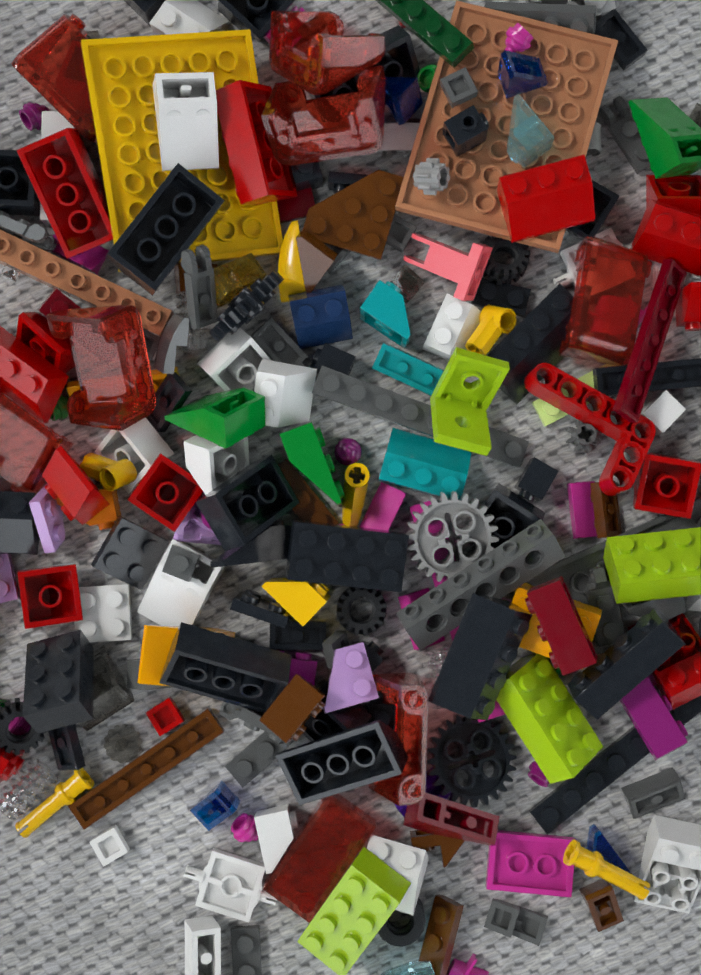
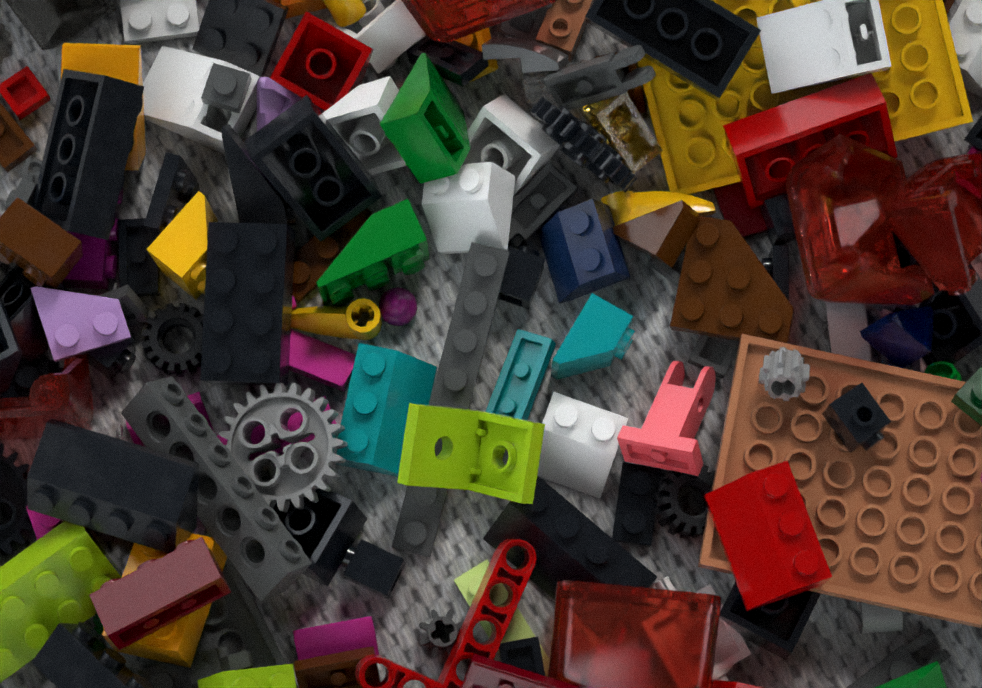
camera: 85 degrees right, 10 degrees down
(407, 282) = (641, 367): clear smoke plate -> none
(458, 87) = (920, 406): dark grey plate -> none
(493, 323) = (583, 485): yellow piece -> none
(520, 73) = (950, 492): clear blue slope -> none
(527, 134) = (858, 501): clear light blue slope -> none

